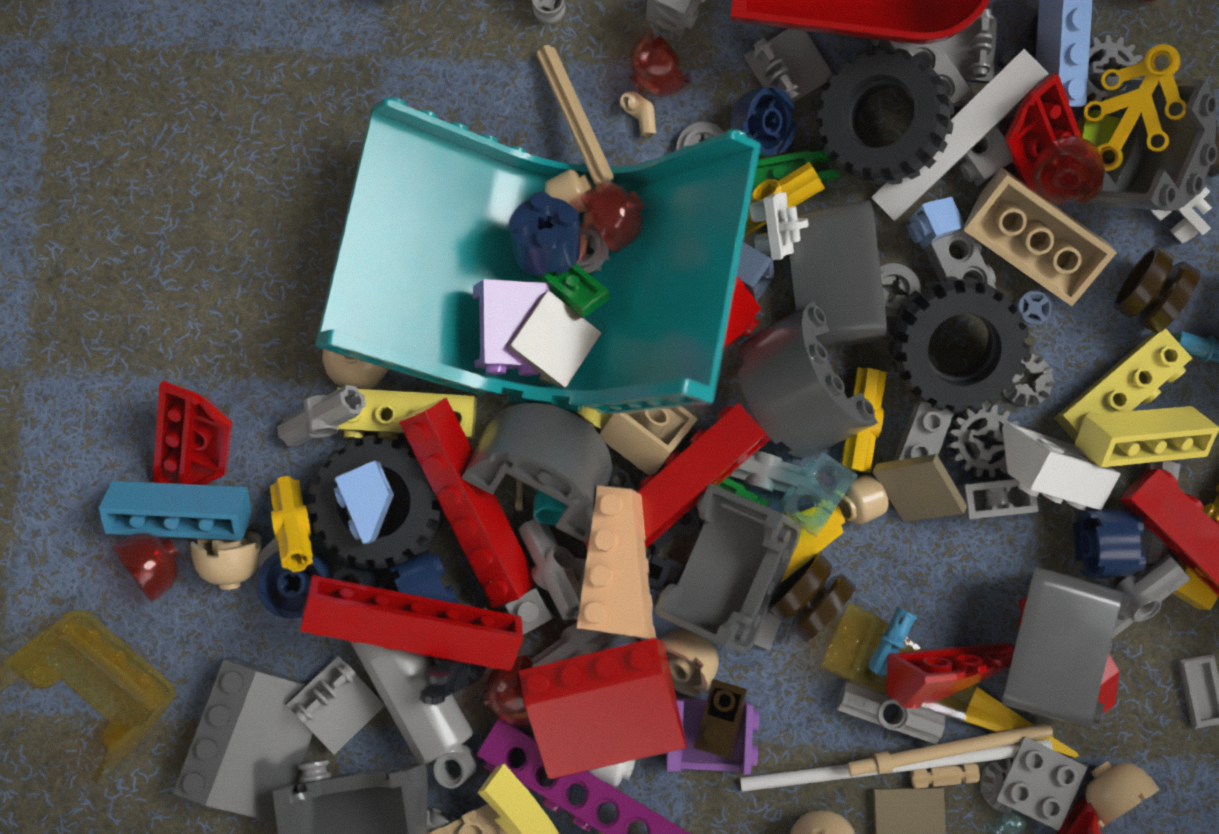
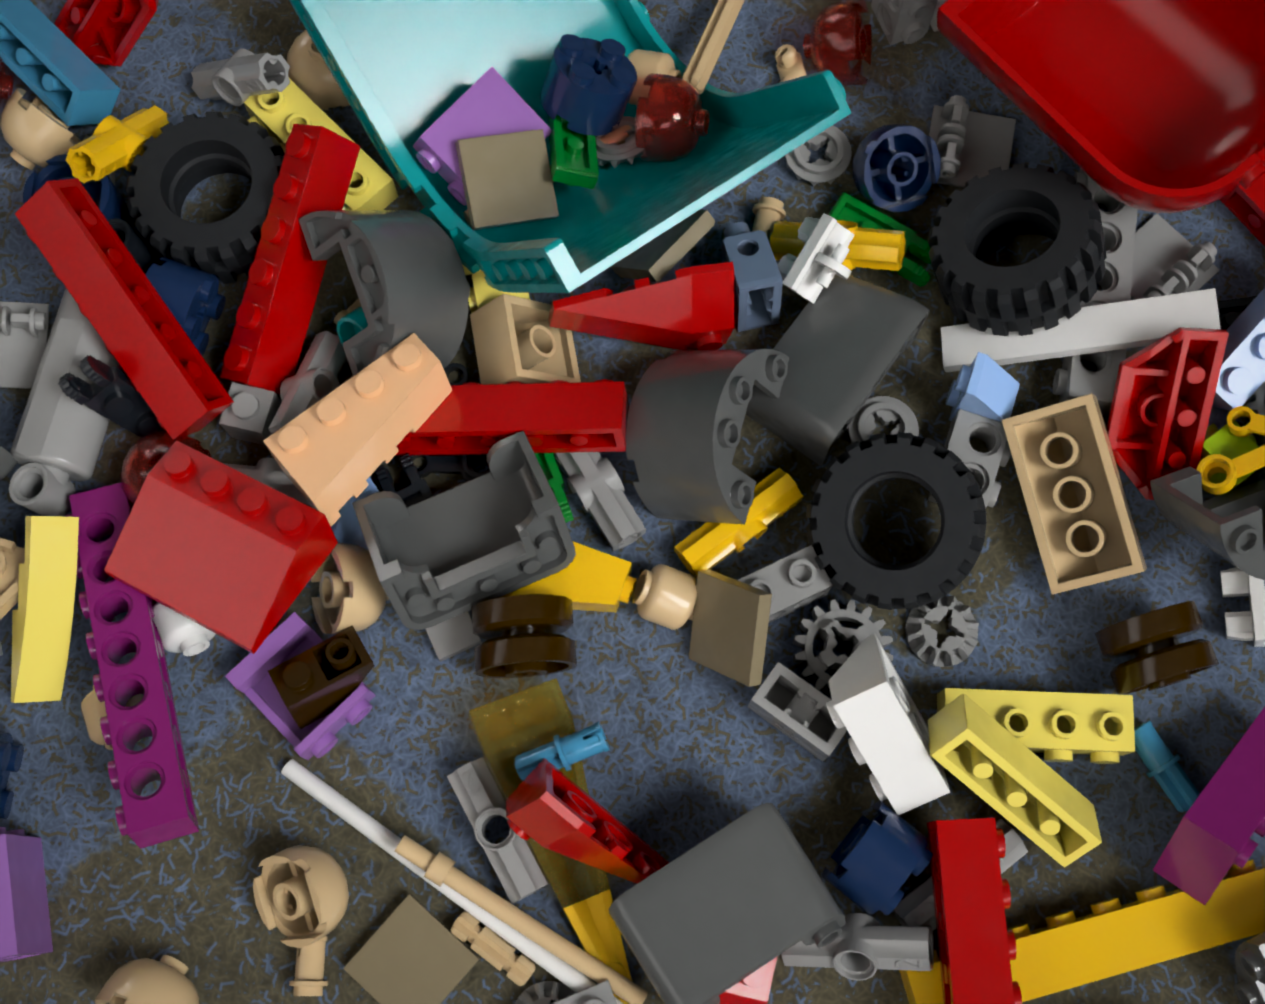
camera: 45 degrees right, 10 degrees down
(367, 498) = (198, 166): light blue slope -> none
(823, 497) = (625, 551): clear light blue brick -> none
(1038, 305) = (1013, 558): sand blue wheel -> none
(1069, 170) = (1160, 442): clear red cylinder -> none

